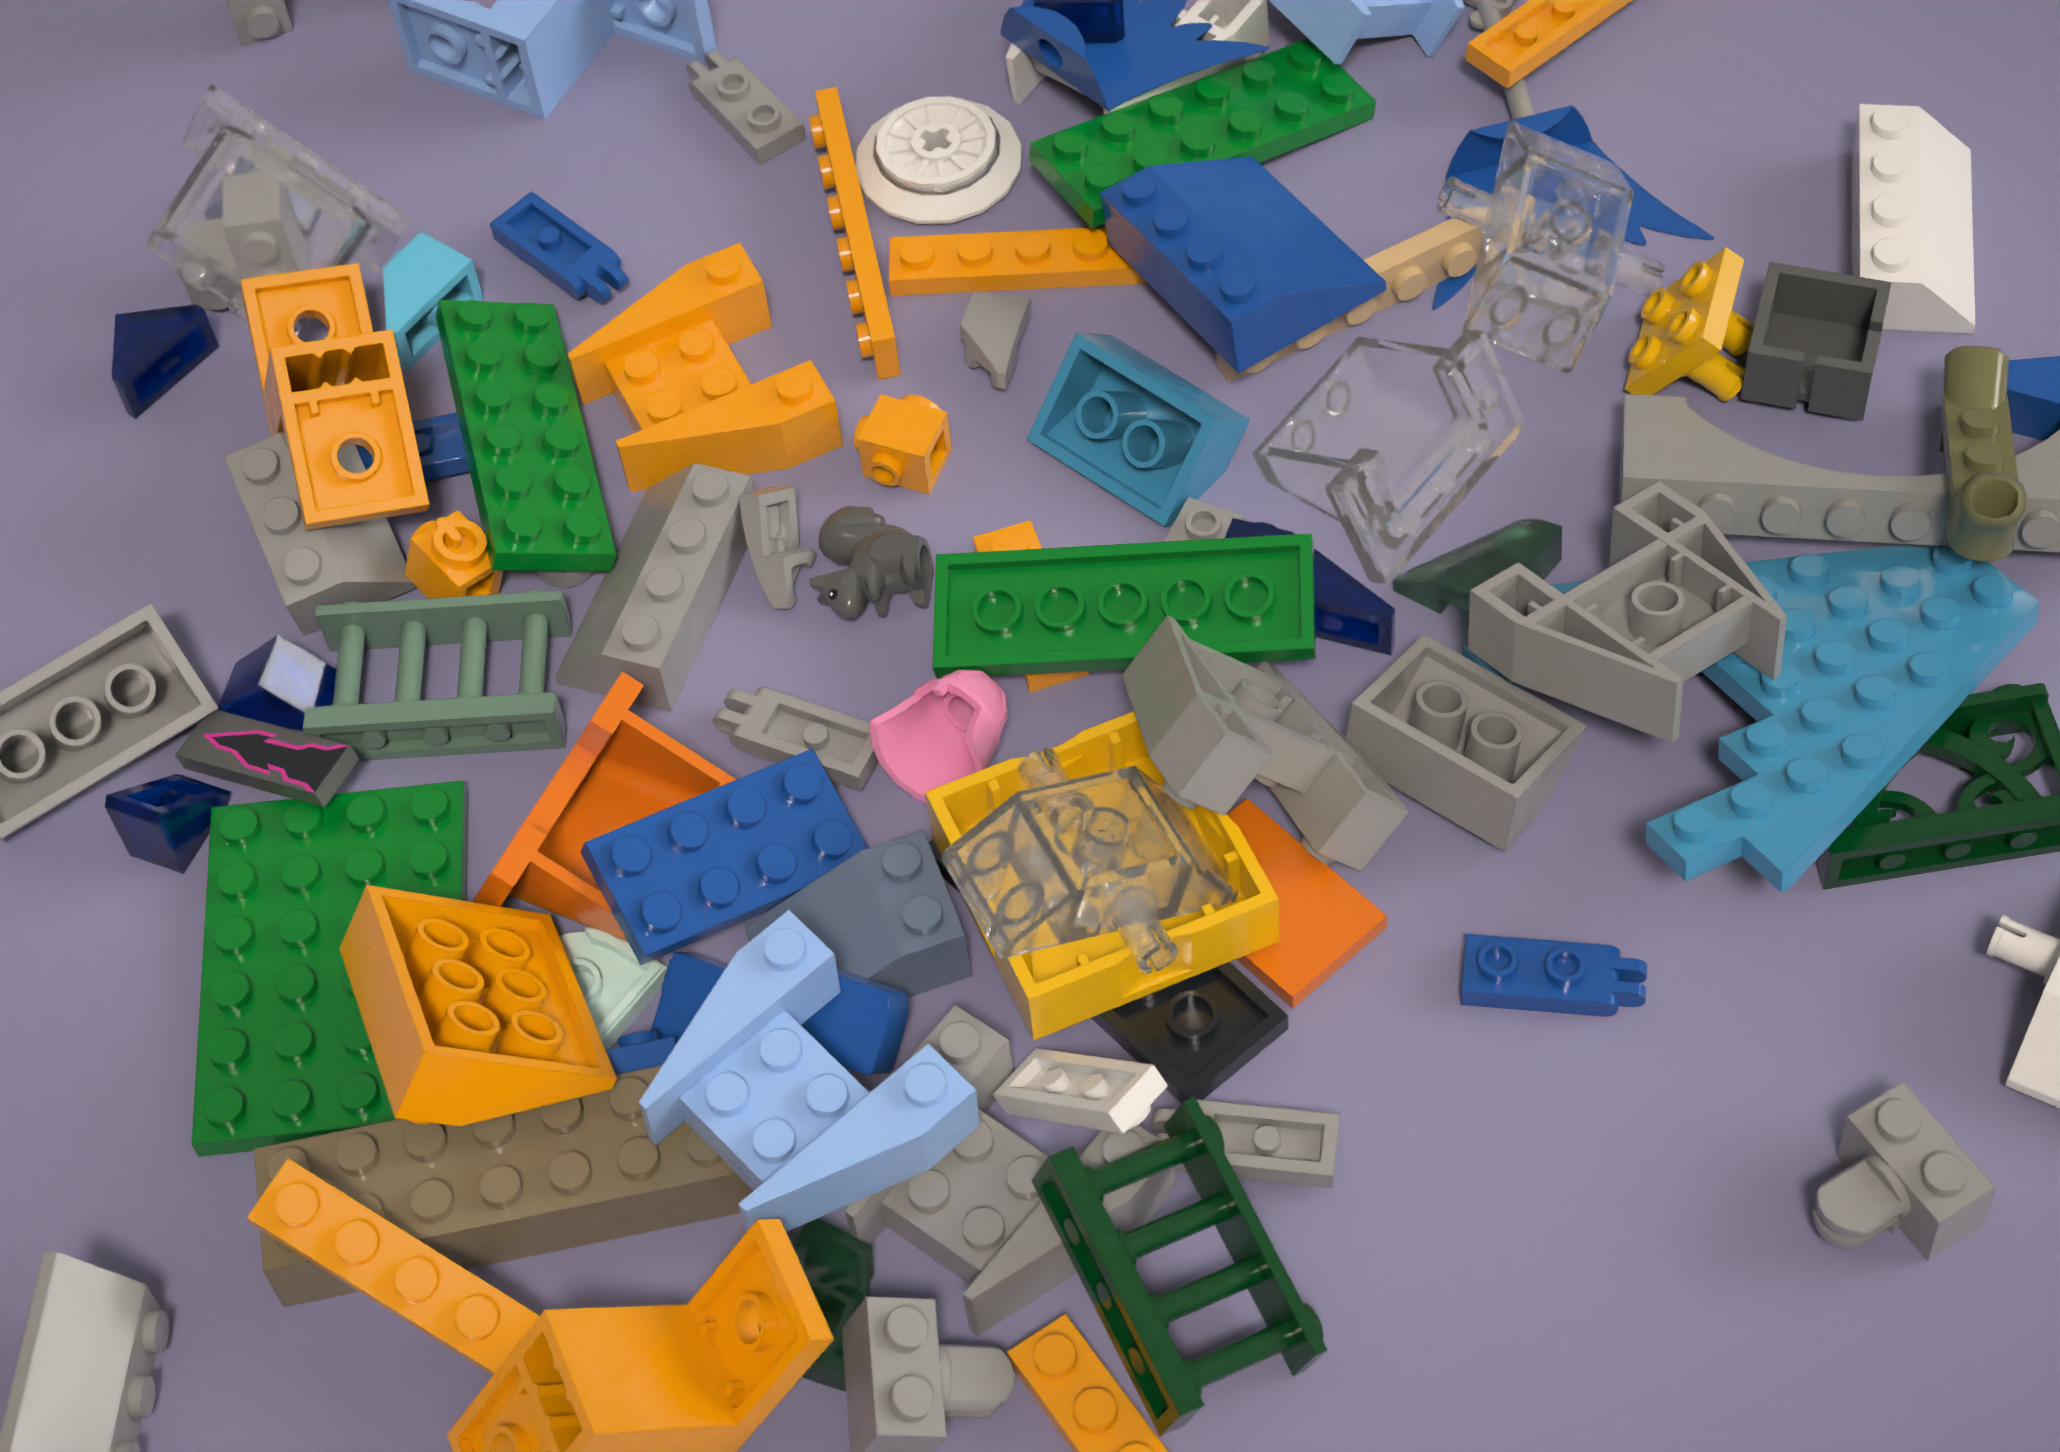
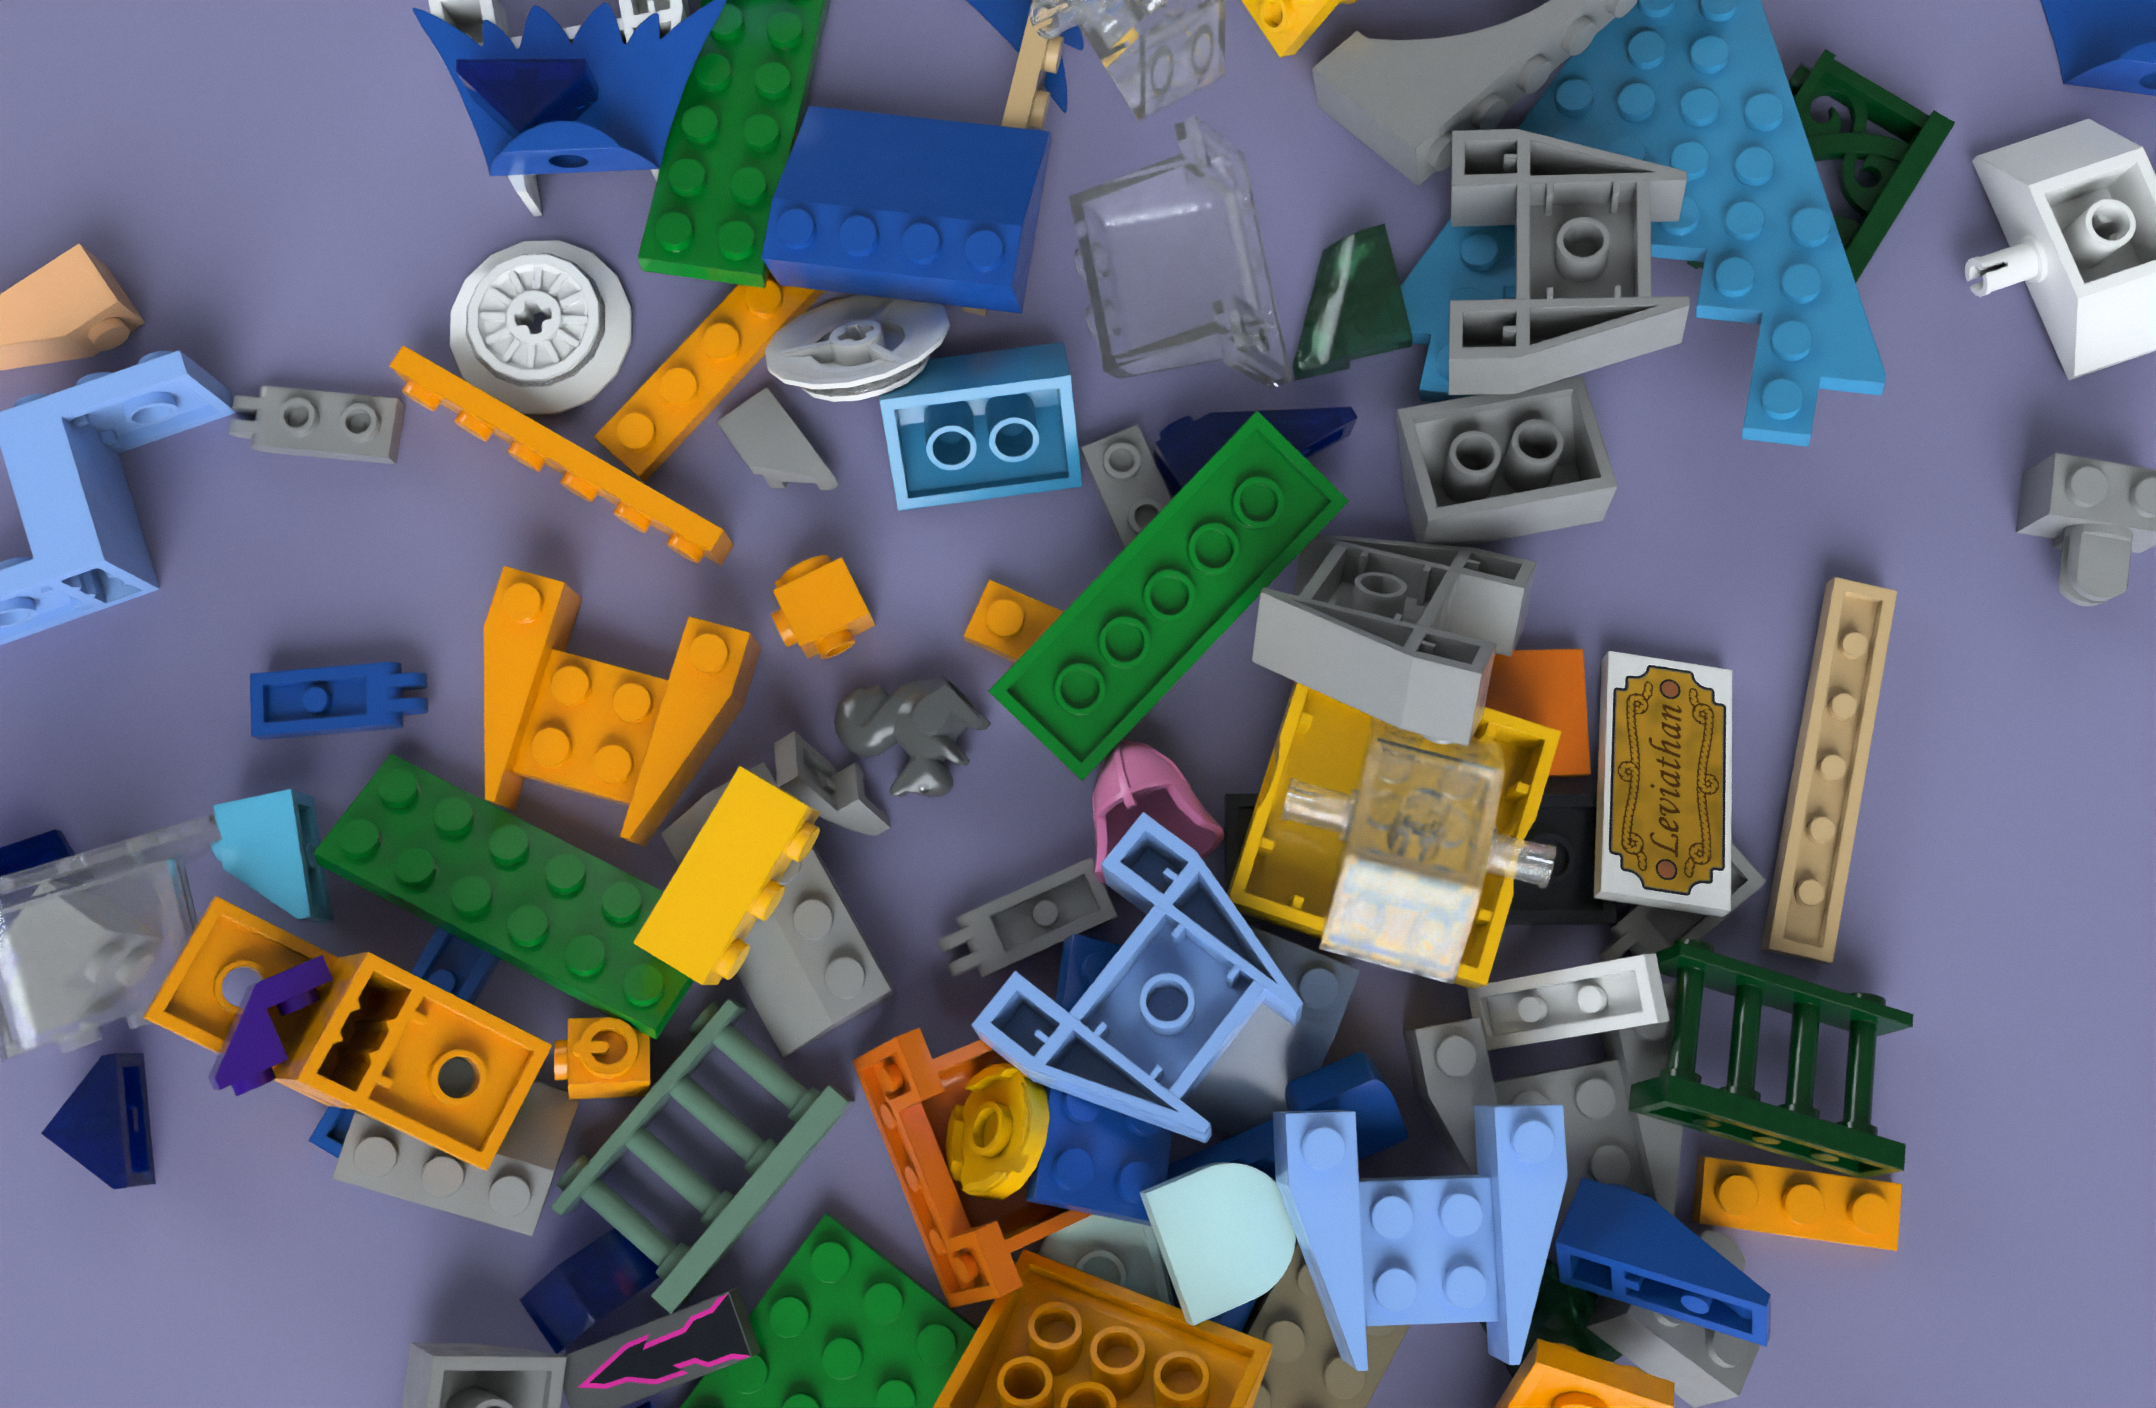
camera: 55 degrees left, 25 degrees up
(251, 343) = (252, 1039): none -> dark purple slope
(617, 810) = (997, 1132): none -> yellow tile
(642, 498) = (729, 879): none -> yellow brick
(658, 984) = (1220, 1236): none -> light aqua tile
(802, 789) = (1161, 1002): none -> light blue wedge
(915, 1262) = (1648, 1258): none -> blue slope
(1107, 309) = (857, 346): none -> white piece
(1332, 1039) = (1664, 785): none -> tile
(1474, 1158) = (1829, 771): none -> tan plate
(1550, 976) = (1720, 587): blue hinge -> none

